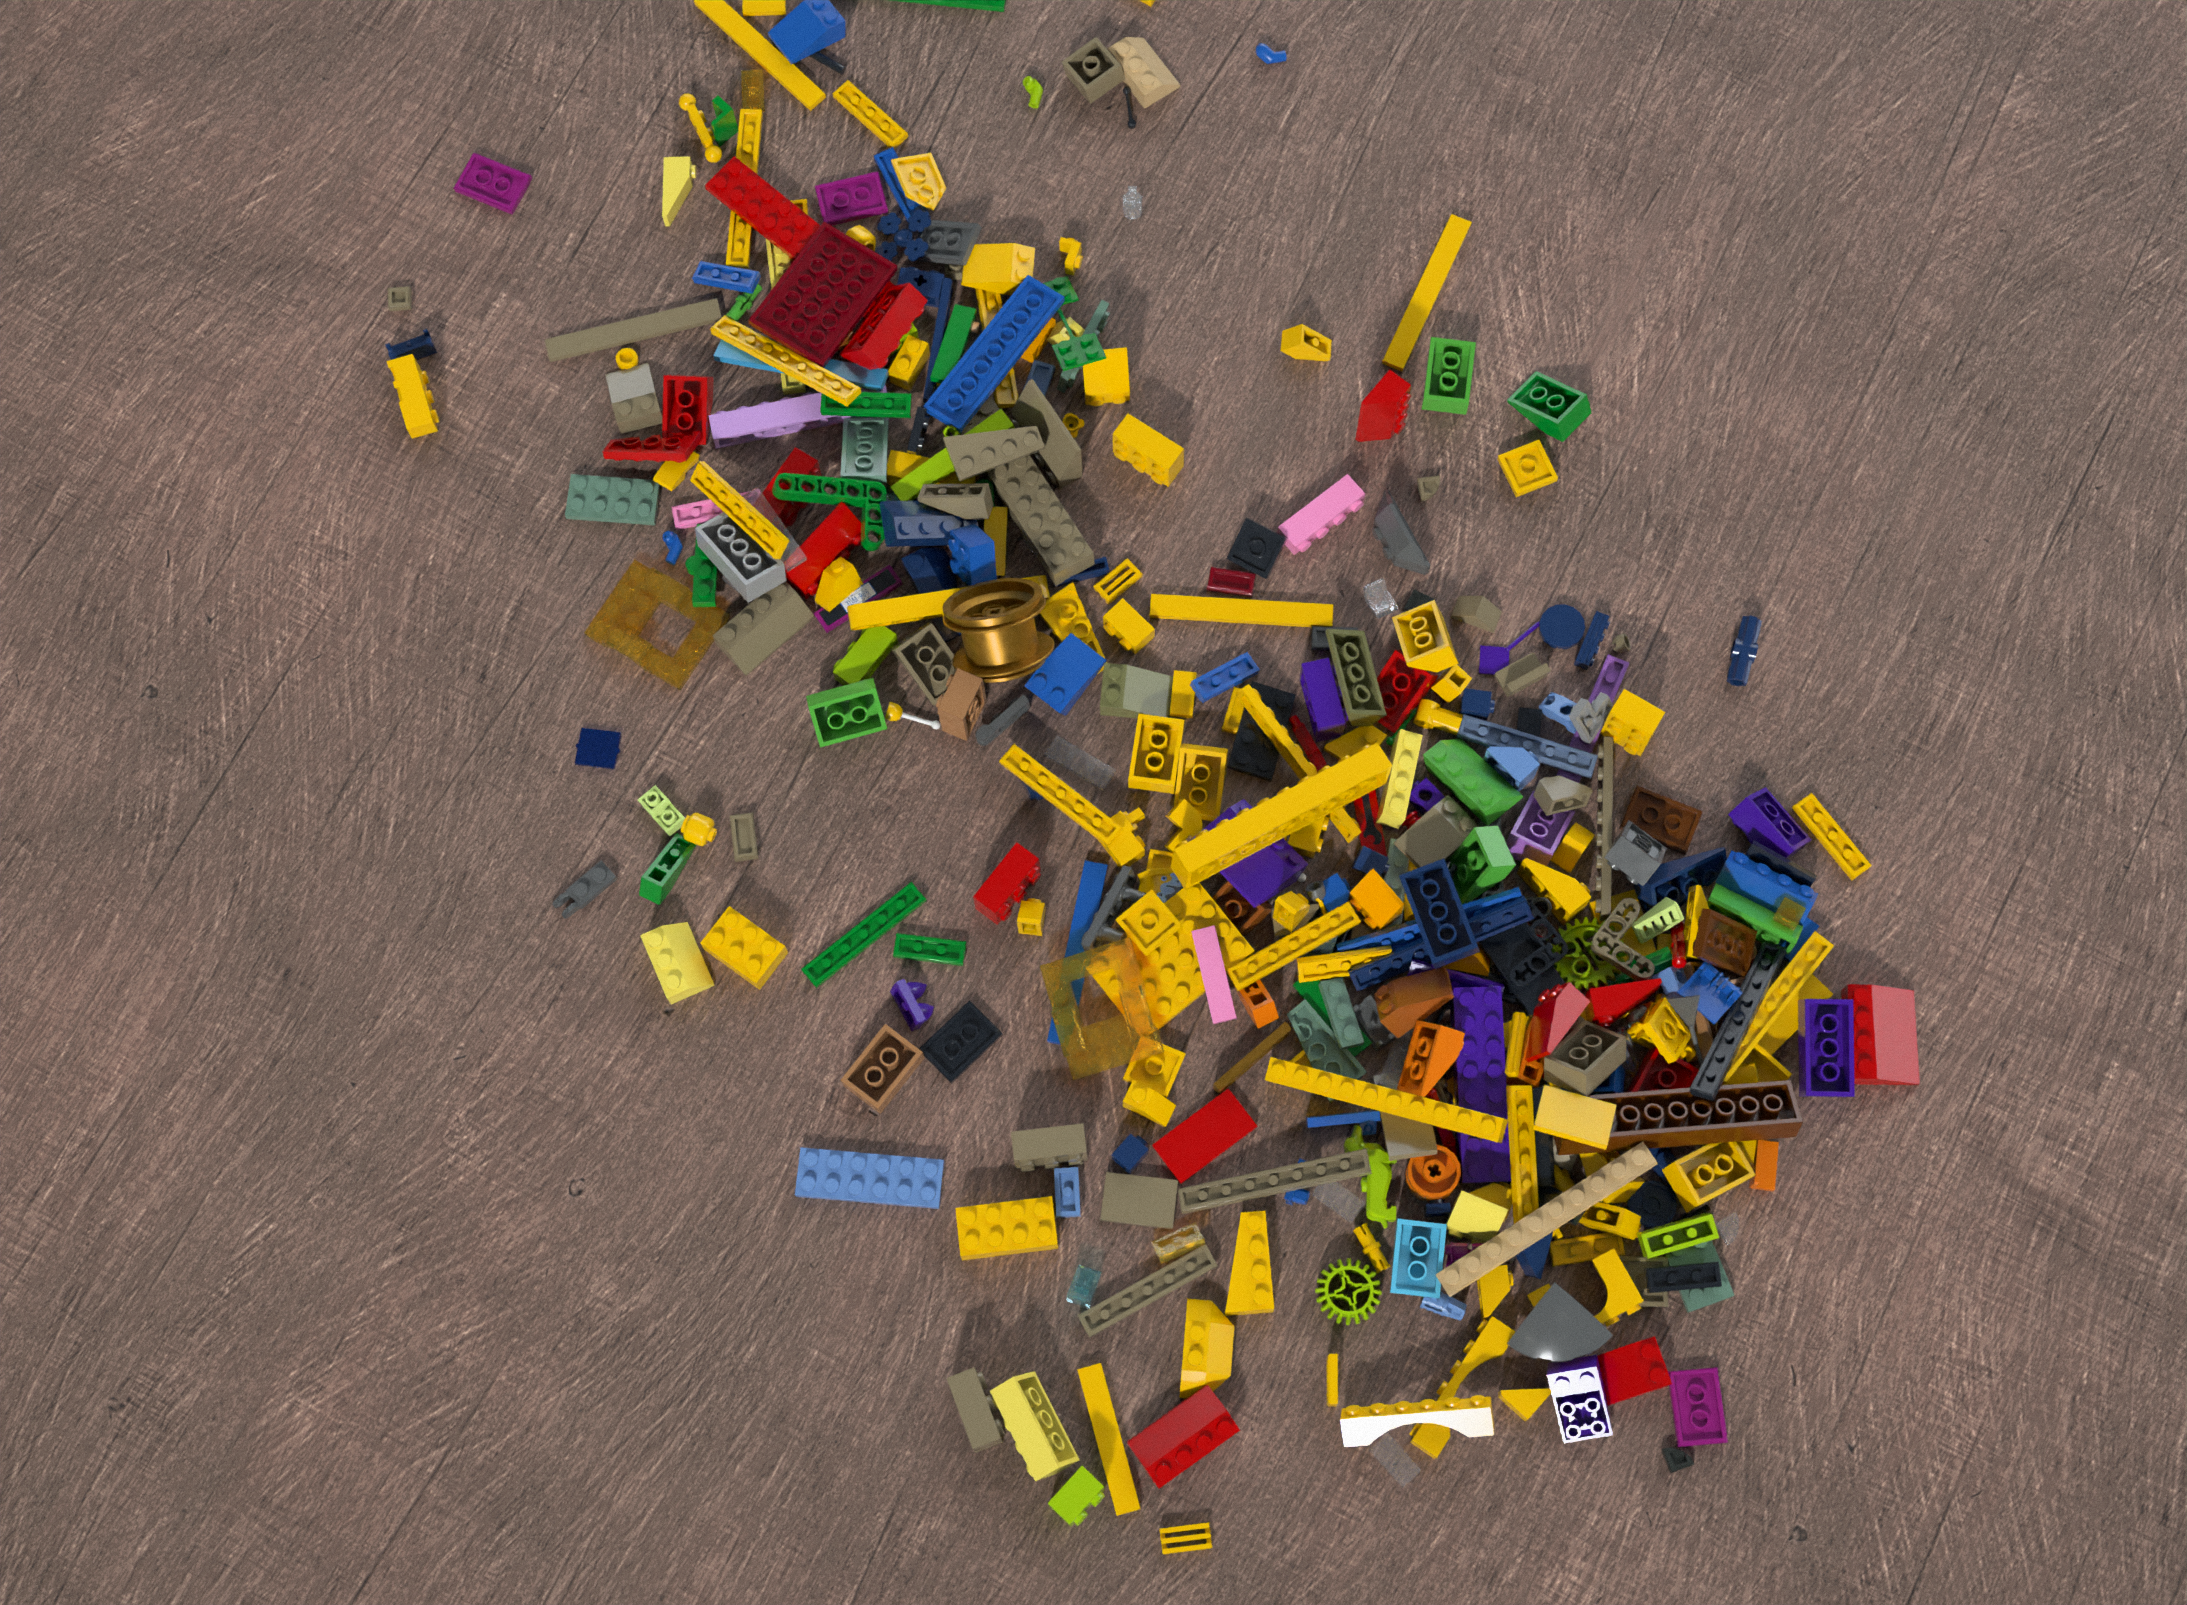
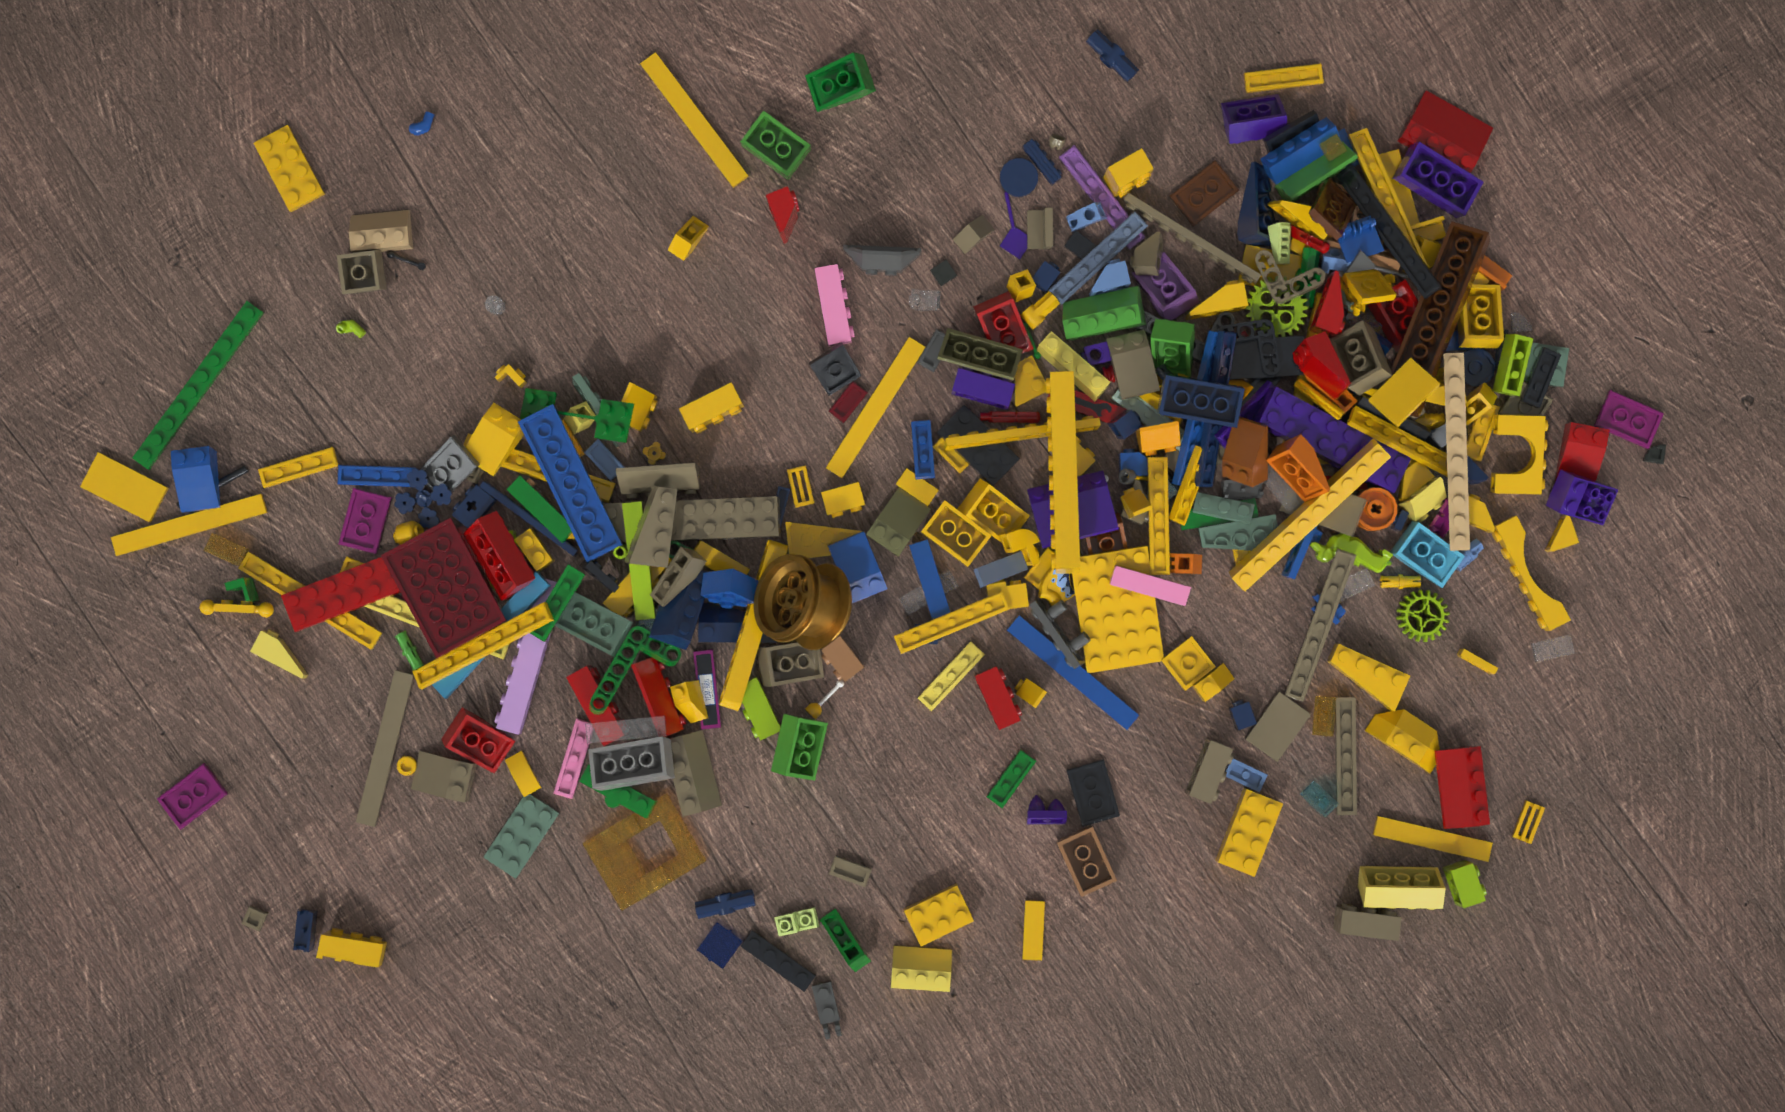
camera: 65 degrees left, 15 degrees up
(611, 814) = (778, 960): none -> black plate
(644, 729) = (725, 903): none -> dark blue piece
(653, 448) = (506, 772): red wing -> none
(674, 546) = (586, 806): blue arm -> none
(698, 829) = (828, 902): yellow head -> none
(726, 277) = (381, 653): blue tile -> none
(739, 510) = (597, 747): yellow tile -> none
(779, 1057) = (1033, 930): none -> yellow tile
(863, 935) = (974, 821): green tile -> none
(869, 1178) = (1157, 910): medium blue plate -> none
(920, 179) = (380, 458): yellow tile -> none
(1002, 721) = (865, 633): dark grey hinge -> none
(1005, 831) = (951, 676): none -> light yellow tile
(1095, 752) = (929, 579): none -> blue tile
(1110, 1041) = (1154, 687): clear yellow piece -> none
(1144, 816) = (1000, 569): none -> sand blue tile
(1149, 923) = (1086, 611): yellow plate -> none
(1204, 1136) = (1256, 655): red tile -> none
(1252, 1058) = (1220, 590): pearl gold tile -> none
(1425, 638) = (978, 286): yellow slope -> none
(1428, 487) = (853, 212): dark tan tile -> none
(1468, 1415) = (1557, 585): arch -> none
(1527, 468) = (881, 129): yellow plate -> none
(1559, 1329) = (1533, 486): dark grey brick -> none
(1572, 847) = (1190, 267): yellow slope -> none
(1590, 717) = (1106, 203): light grey plate -> none
(1635, 854) = (1227, 229): dark grey slope -> none

